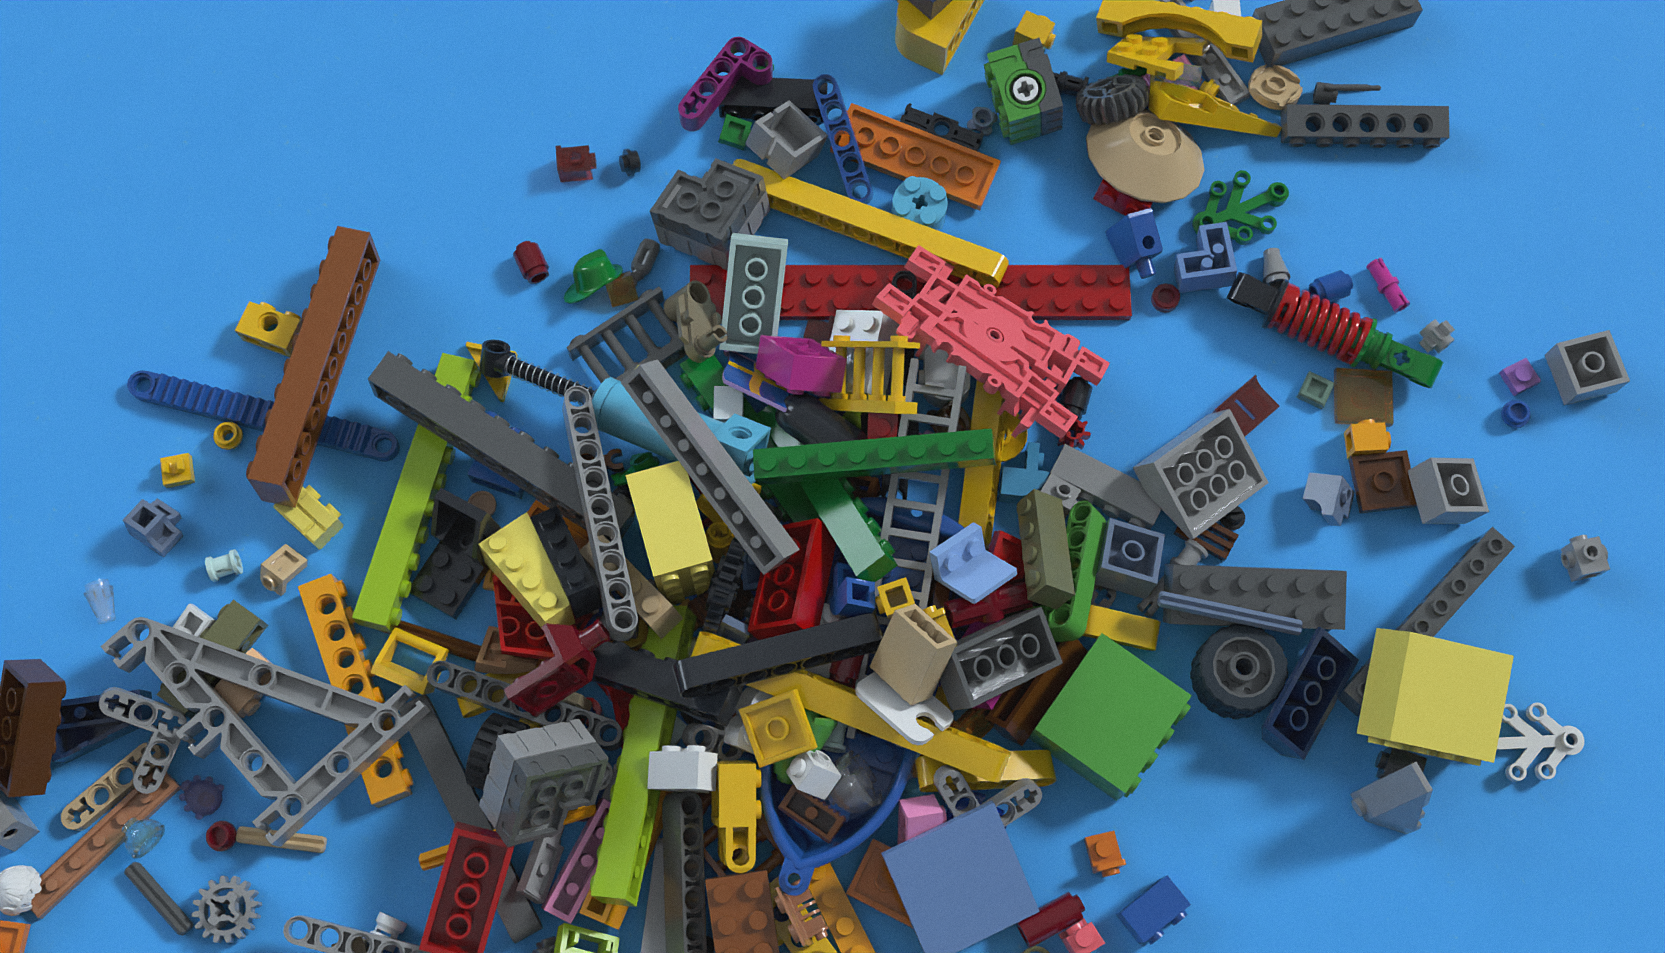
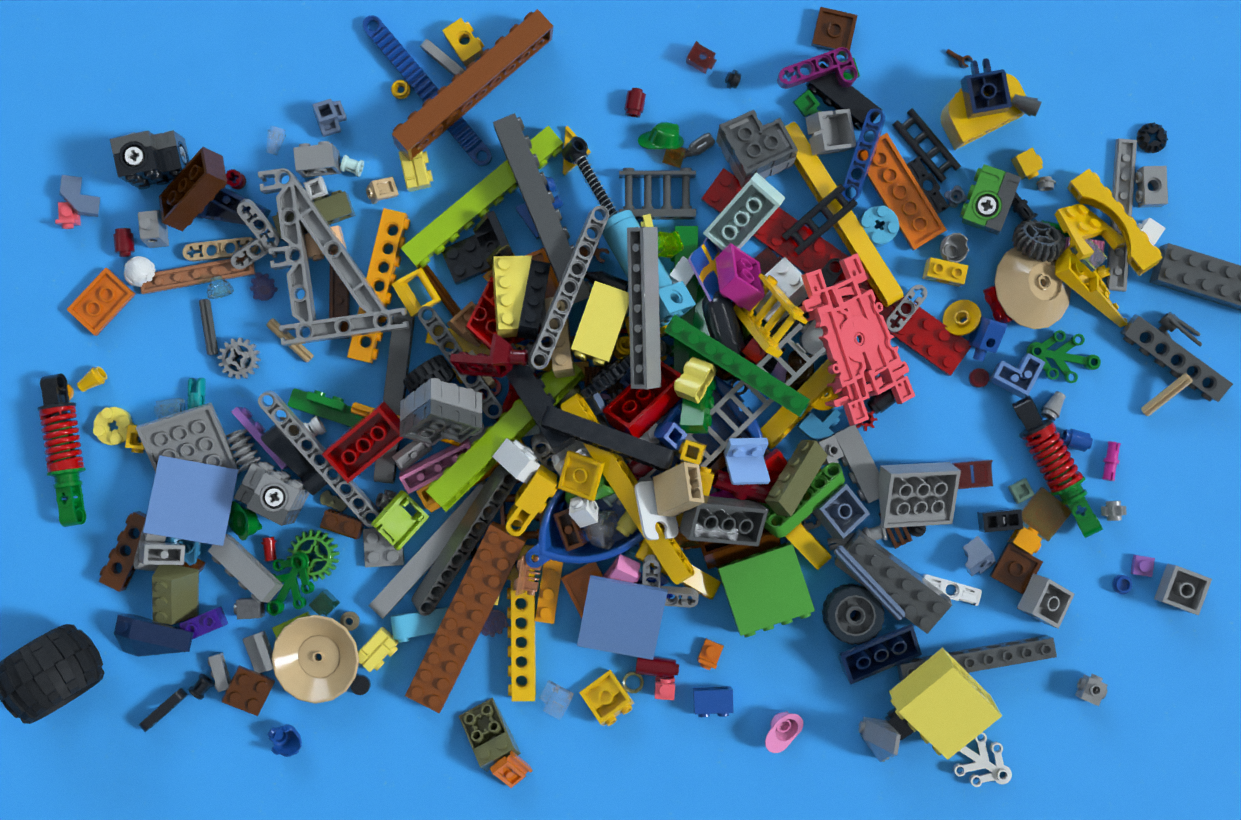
camera: 35 degrees right, 15 degrees up
(87, 687) = (240, 182): none -> dark red bush
(172, 585) = (317, 159): none -> light grey brick
(177, 470) = (360, 90): yellow tile -> none
(221, 836) = (260, 316): dark red plate -> none
(252, 365) = (440, 57): none -> light grey beam
(310, 737) = (338, 299): none -> reddish brown tile
(382, 892) = (324, 407): none -> green bracket
(484, 501) = (513, 228): medium nougat piece -> none
(638, 463) = (612, 270): green plate -> none
(692, 385) = (669, 244): none -> clear neon green brick
(696, 320) = (701, 207): dark tan piece -> none
(705, 34) = (834, 29): none -> reddish brown plate
(834, 510) = (694, 380): none -> light yellow brick
(837, 226) = (831, 219): none -> black bar
(880, 756) = (626, 525): none -> light yellow brick
(892, 96) = (938, 146): none -> black bar
(1024, 173) = (954, 247): none -> light grey hair
(1029, 265) = (918, 300): none -> light grey beam
(1034, 206) = (945, 272): none -> yellow brick
(1072, 41) = (1046, 183): none -> light grey plate
(1085, 238) = (958, 311): none -> yellow dish
(1269, 882) = (783, 730): none -> bright pink piece
(1274, 86) = (1143, 297): tan tile -> none
(1320, 436) = (1000, 520): none -> black brick
(1345, 554) = (963, 592): none -> white piece
(1387, 169) = (1167, 394): none -> tan axle

